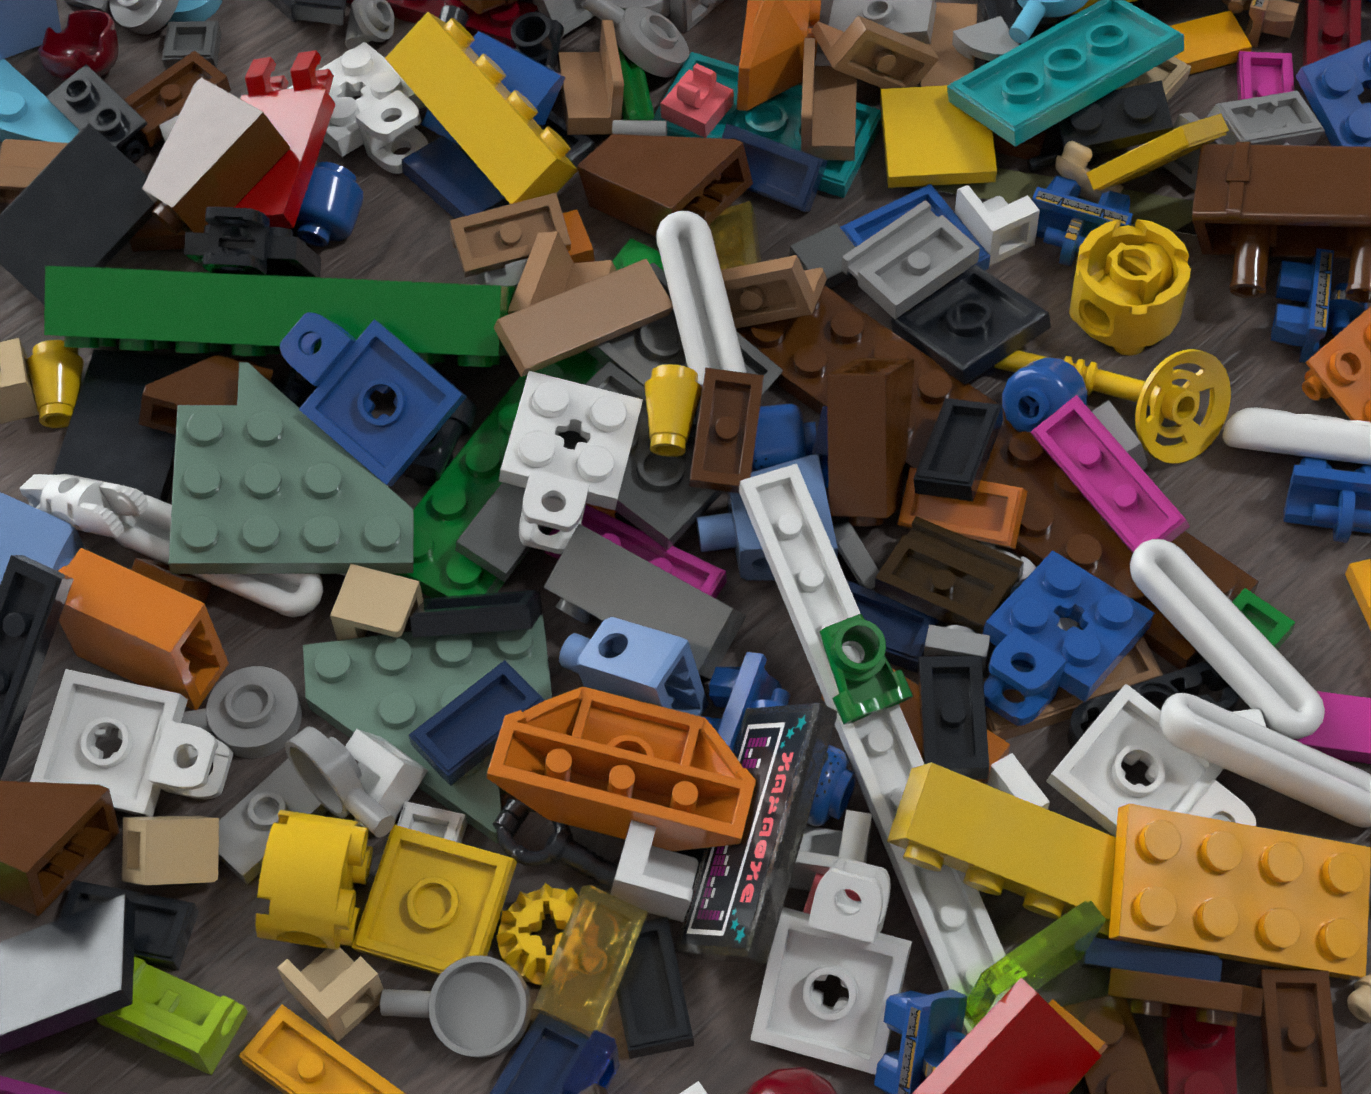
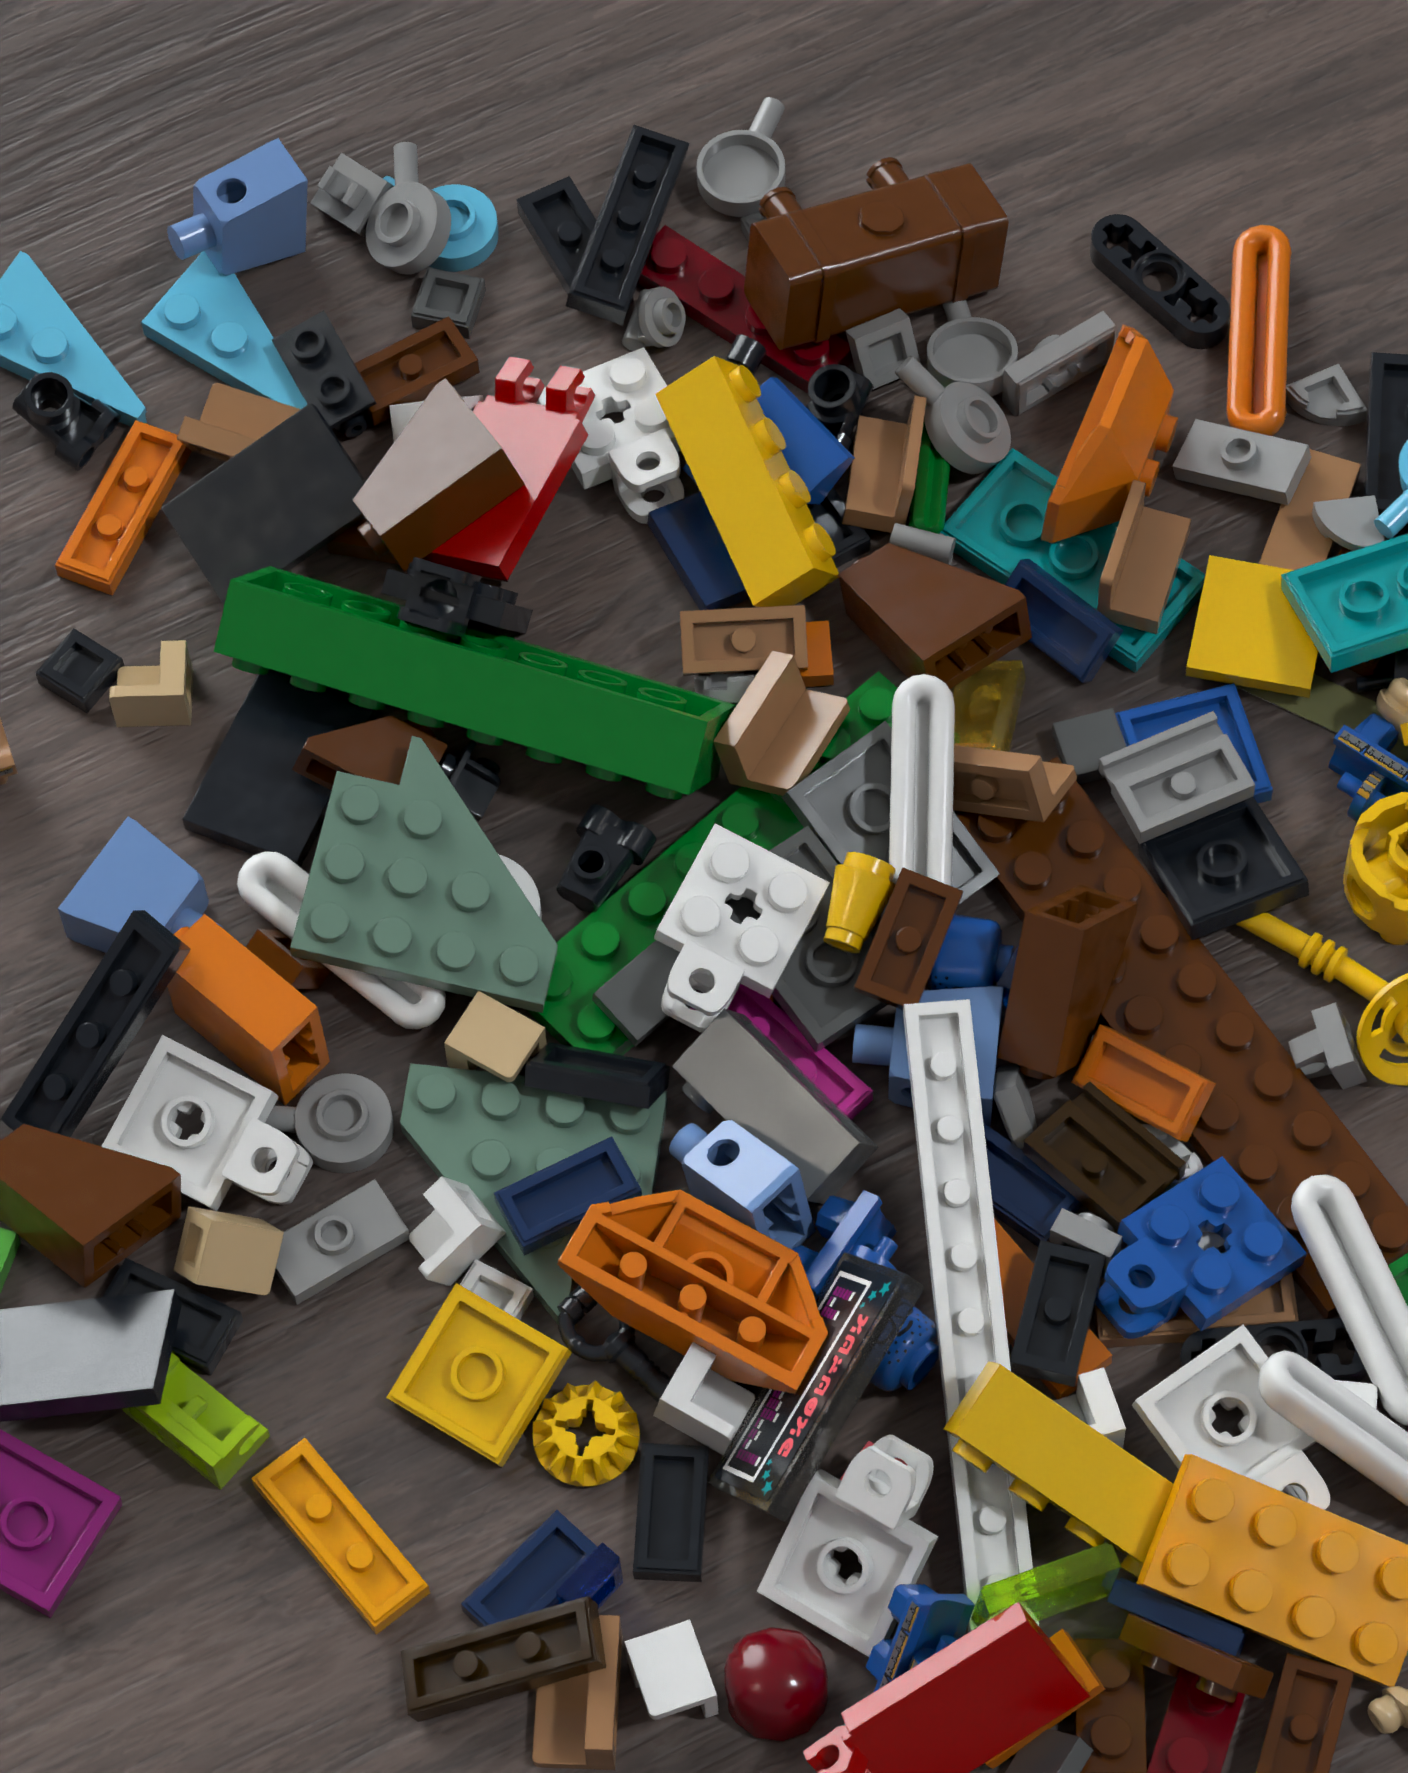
camera: 15 degrees right, 5 degrees up
(55, 381) = (213, 697): yellow cone -> none
(84, 502) = (216, 850): white hinge -> none
(87, 40) = (323, 279): dark red hair -> none
(312, 879) = (362, 1321): yellow brick -> none
(329, 205) = (556, 551): blue head -> none
(334, 779) = (408, 1223): light grey piece -> none
(334, 990) = (360, 1435): tan panel -> none
(348, 375) = (523, 781): blue plate -> none
(474, 1006) = (491, 1487): light grey piece -> none
(583, 317) = (790, 773): medium nougat tile -> none
(590, 960) = (617, 1472): clear yellow plate -> none
(697, 101) = (998, 520): coral tile -> none
(824, 846) = (884, 1413): white panel -> none
(867, 684) = (970, 1261): green plate -> none
(875, 53) = (1212, 513): medium nougat panel -> none
(958, 449) = (1155, 1018): black tile -> none
(996, 225) = (1293, 752): white panel -> none
(1039, 391) = (1272, 978): blue head -> none
(1108, 476) = (1306, 1089): dark pink tile -> none

